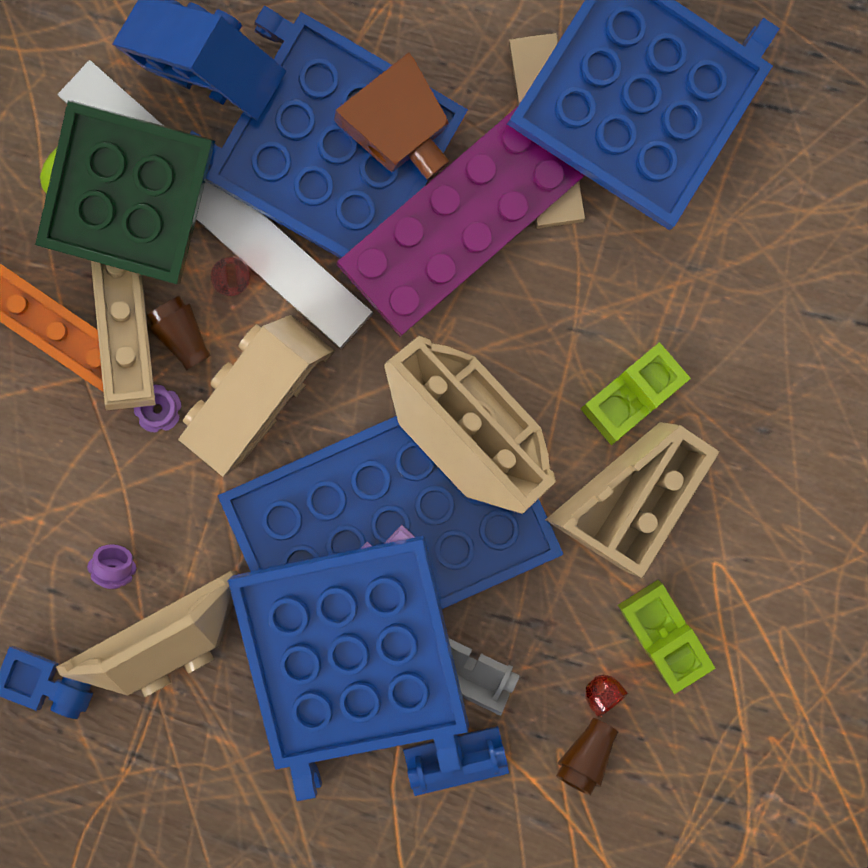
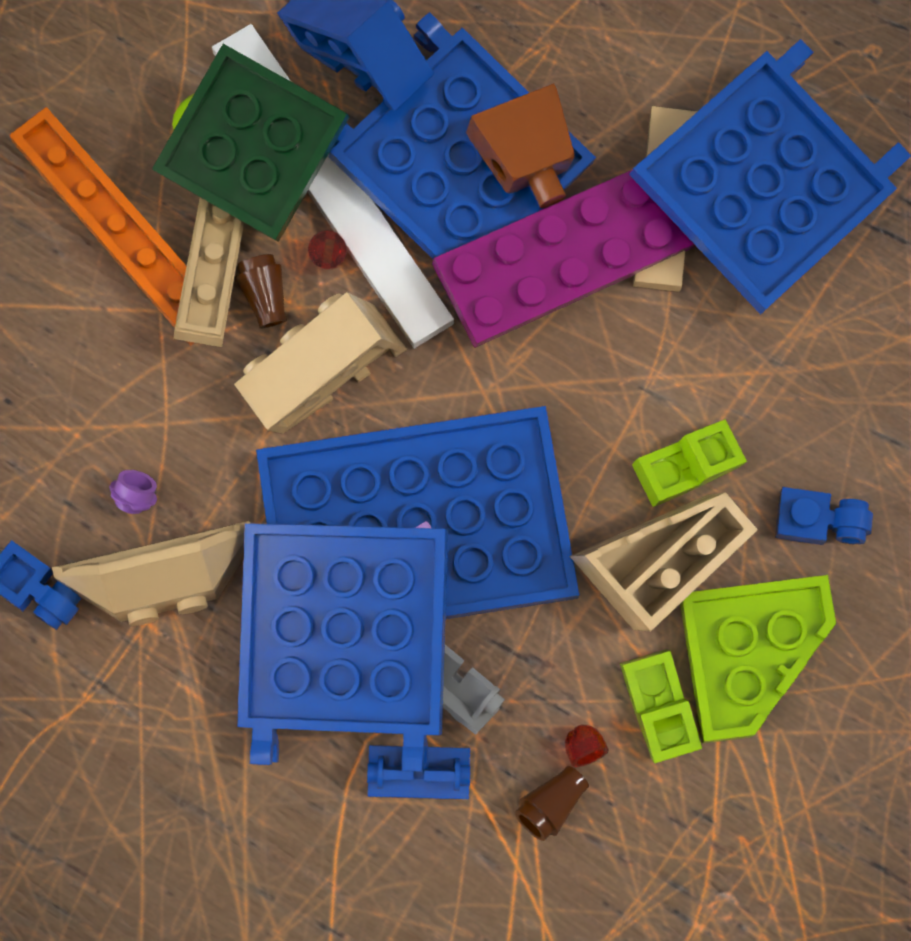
camera: 10 degrees right, 10 degrees down
(167, 418) = (227, 368): medium lavender plate -> none
(469, 425) = (517, 439): tan wedge -> none
(738, 561) = (750, 648): none -> lime plate
(761, 415) = (807, 517): none -> blue plate

